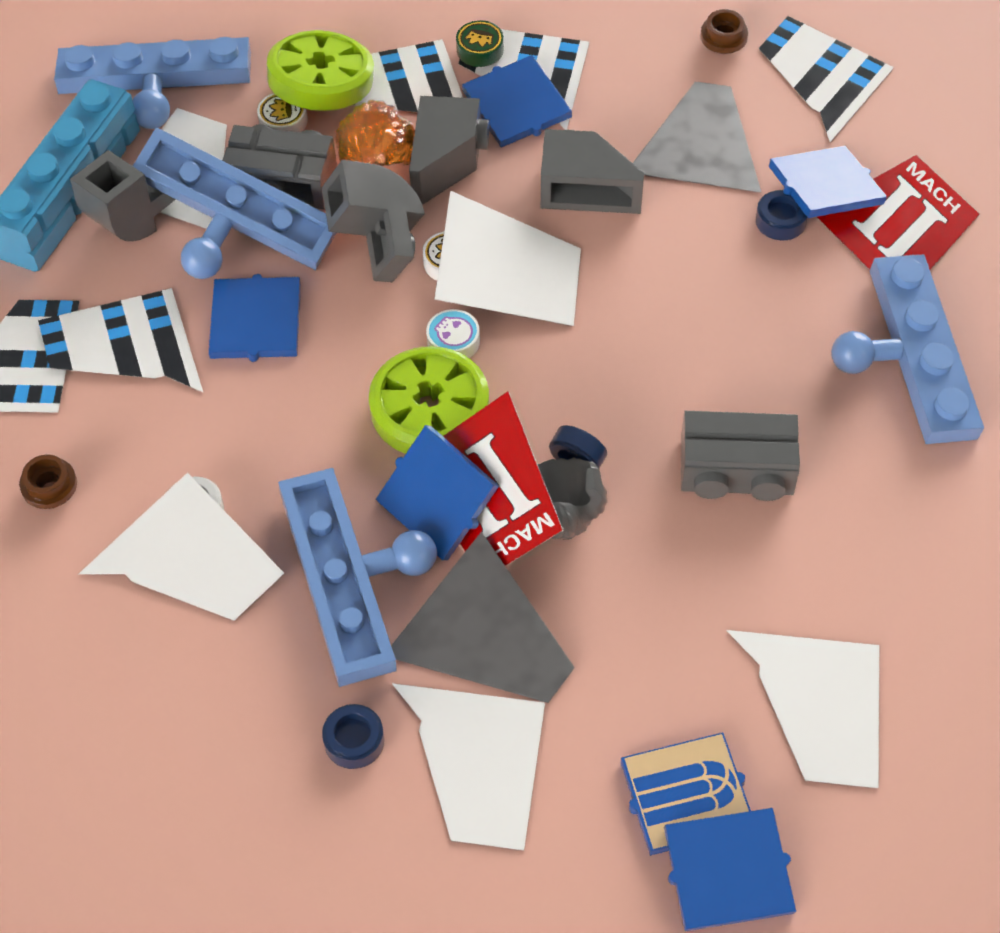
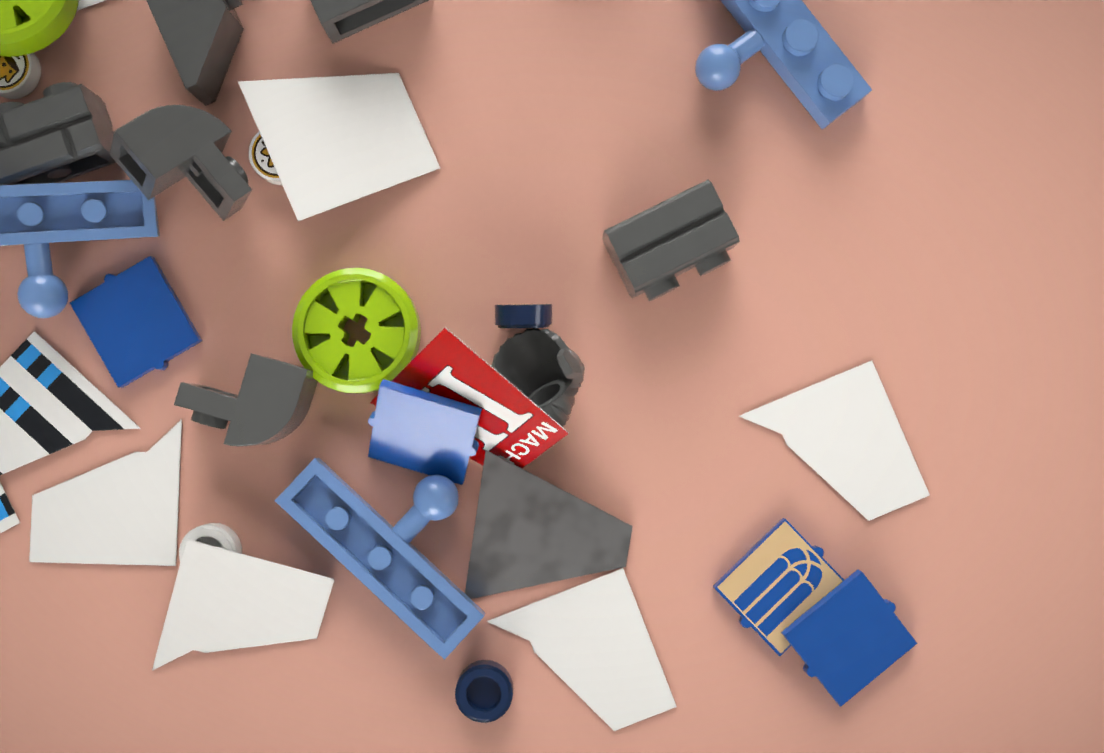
camera: 30 degrees left, 30 degrees up
(44, 470) = (47, 608): reddish brown plate -> none
(136, 442) = (113, 512): none -> white sticker
(314, 417) = (268, 406): none -> dark grey brick
(375, 135) = (122, 56): clear orange hair -> none
(455, 331) = (336, 243): tile -> none

